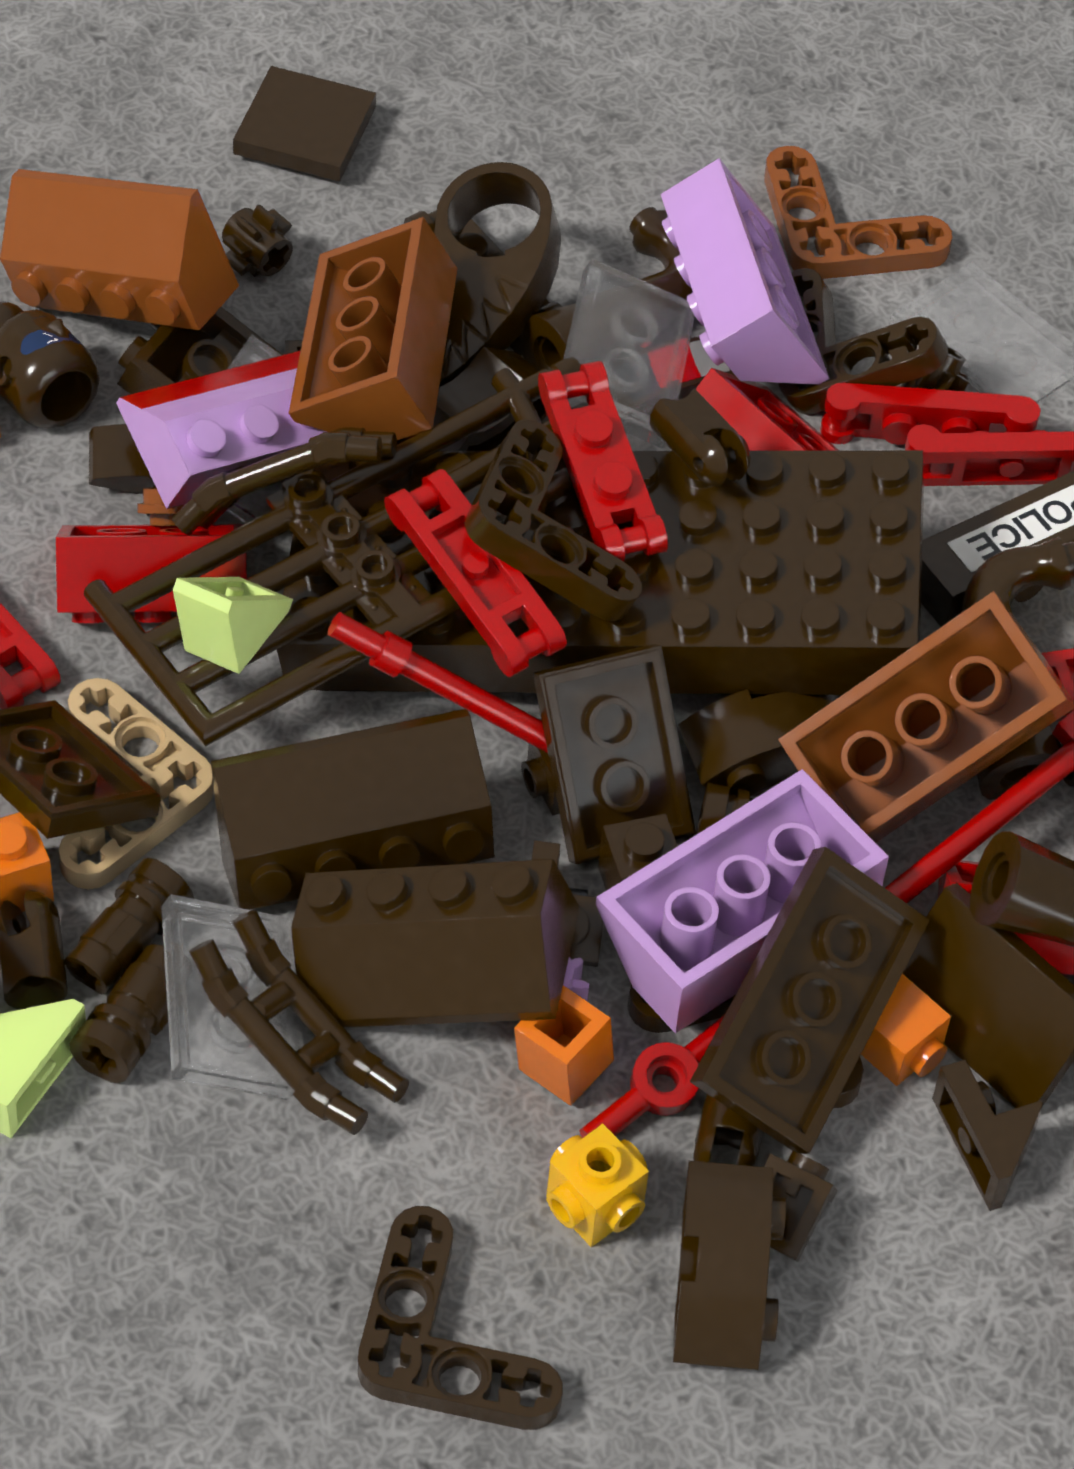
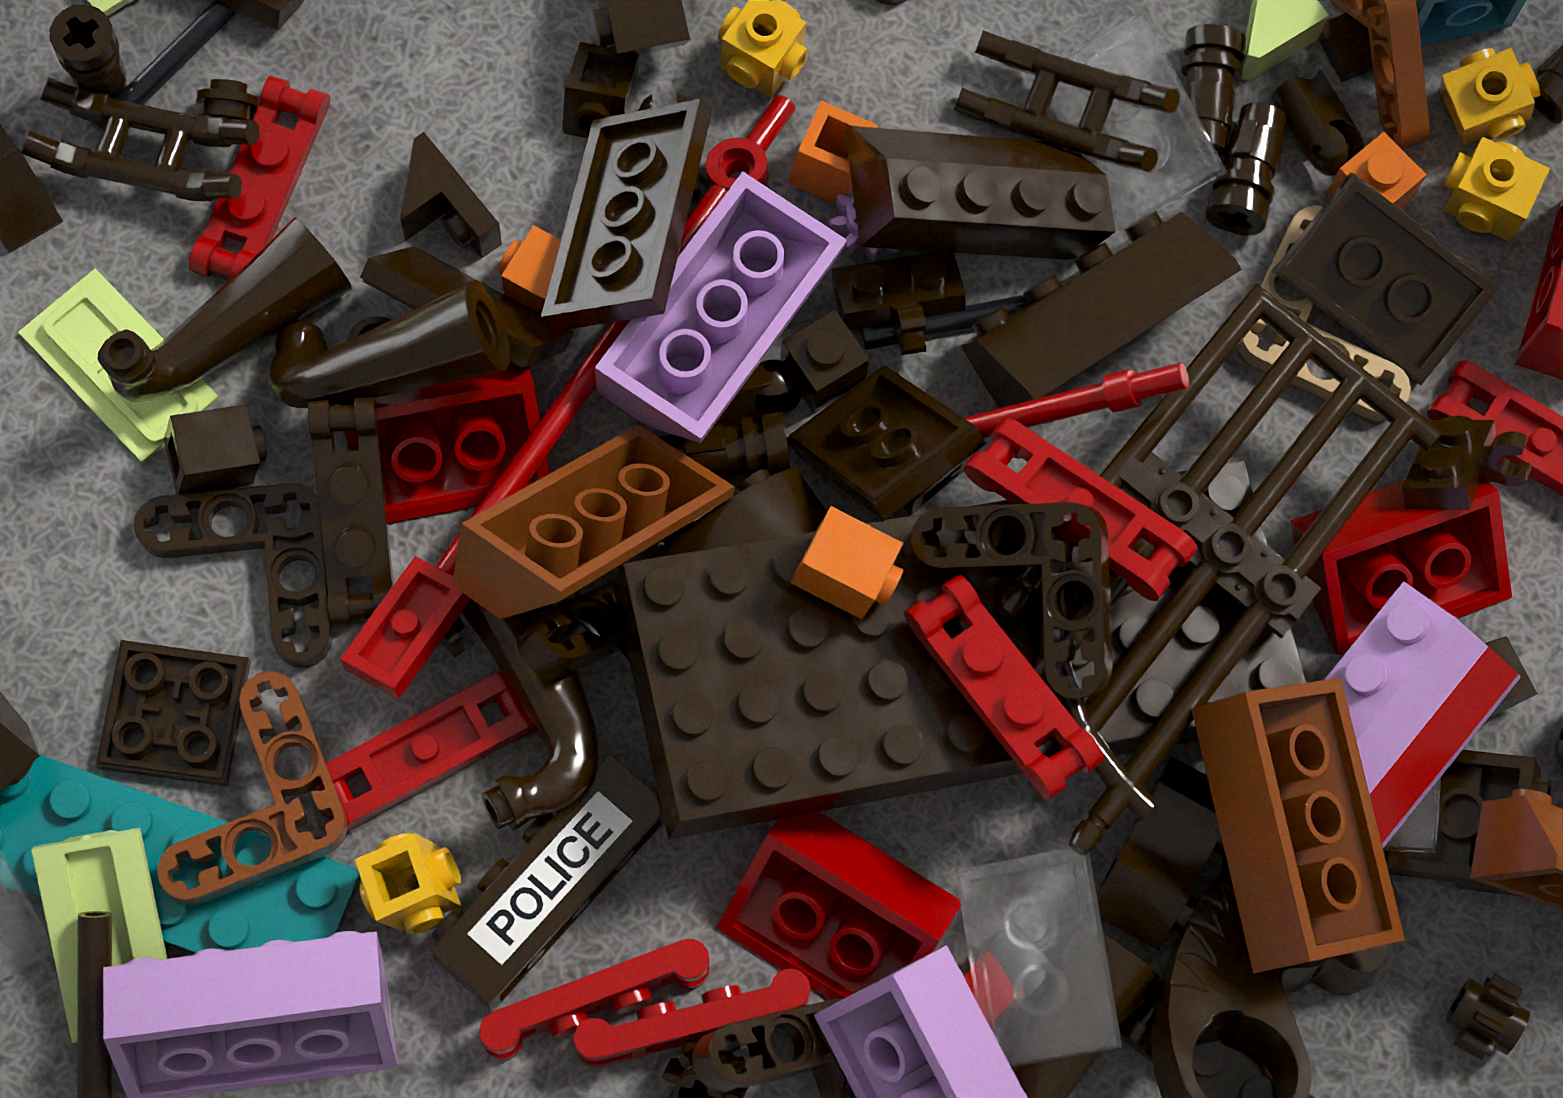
camera: 160 degrees right, 20 degrees up
(59, 612) = (1460, 460): none -> dark brown plate
(226, 488) = (1294, 599): dark brown piece -> none
(227, 618) = (1289, 392): yellowish green slope -> none
(701, 438) = (915, 750): dark brown piece -> none
(711, 578) = (849, 564): none -> orange brick

